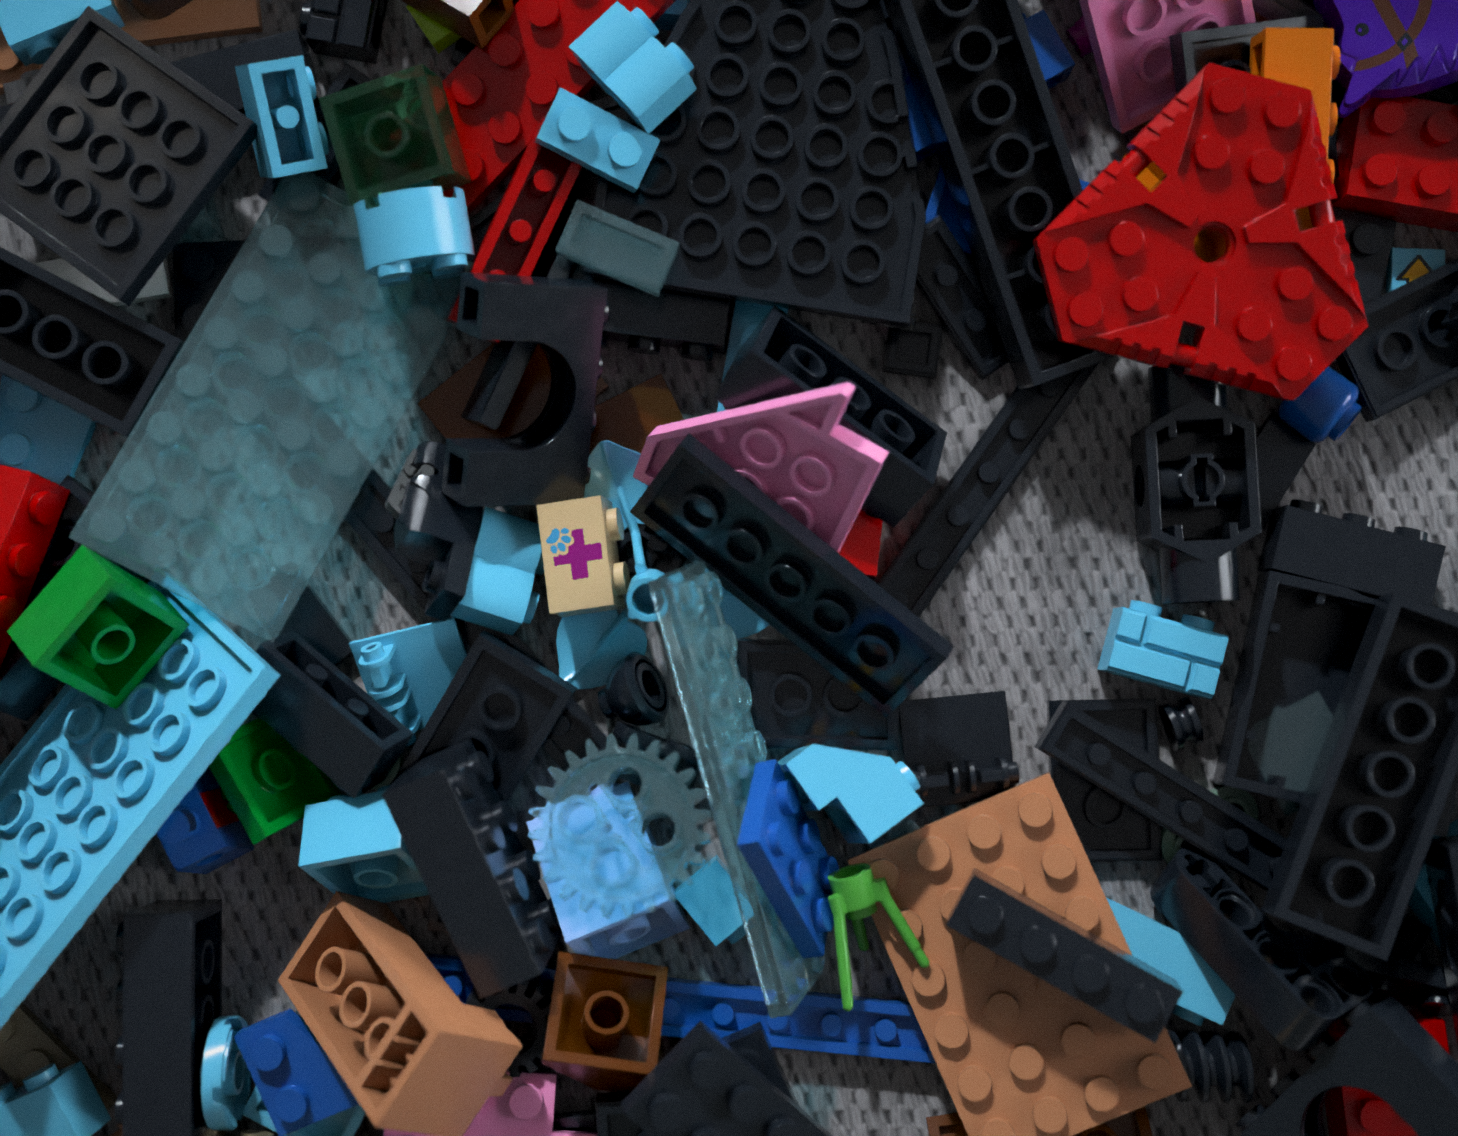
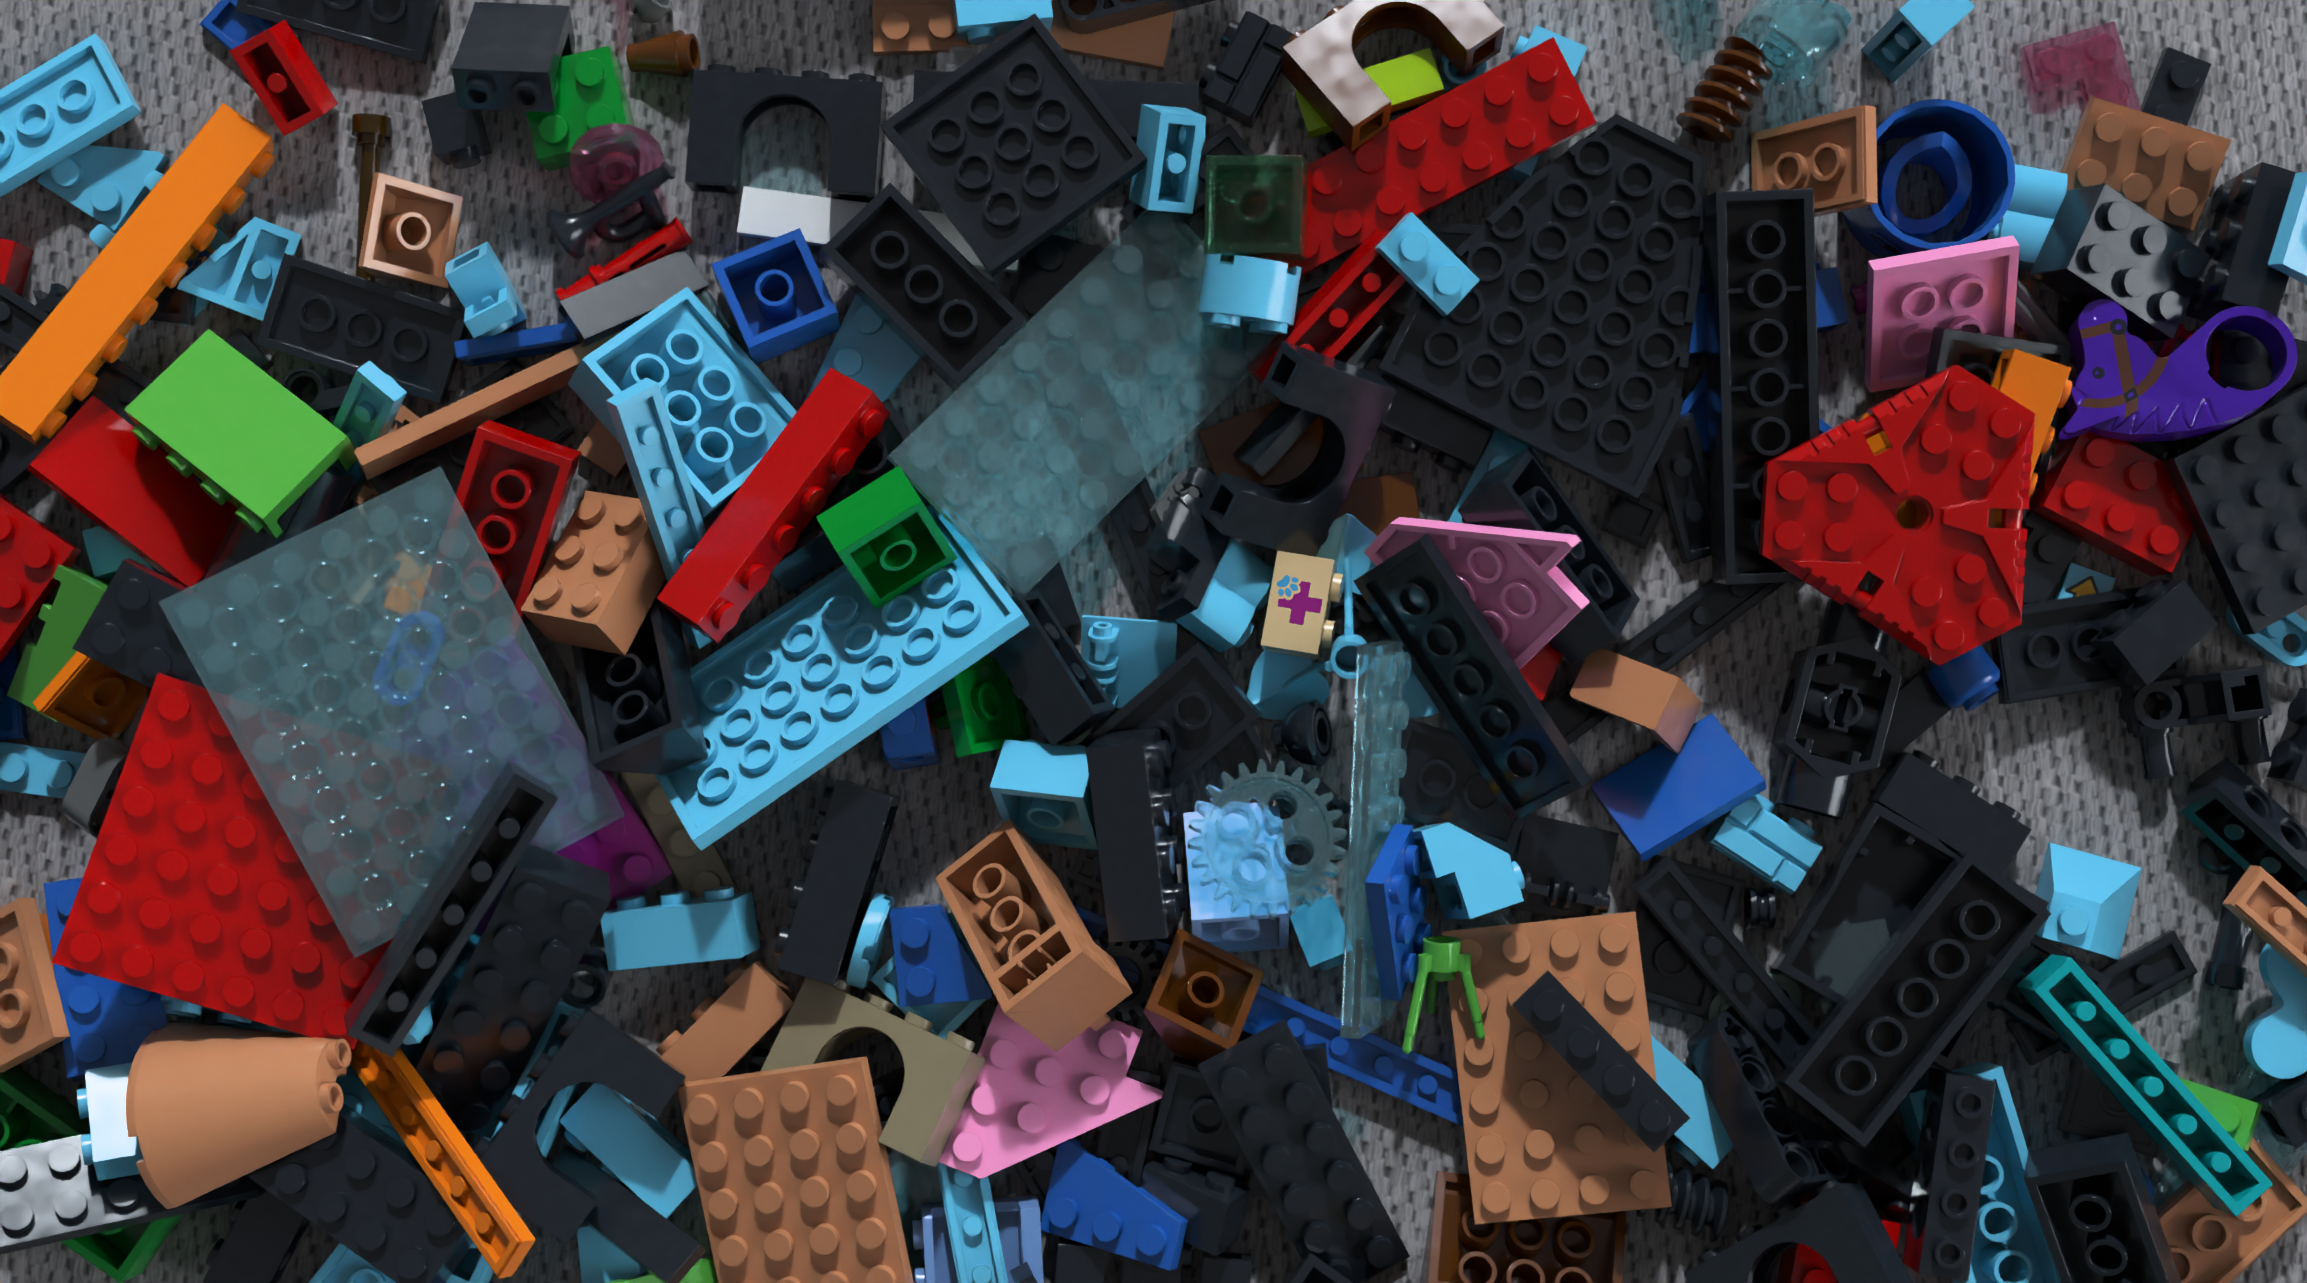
camera: 20 degrees right, 0 degrees up
(617, 248) = (1414, 358): clear light blue tile -> none
(634, 65) = (1477, 211): medium azure brick -> none
(977, 537) = (1638, 696): none -> nougat panel
(1053, 622) = (1674, 794): none -> blue tile

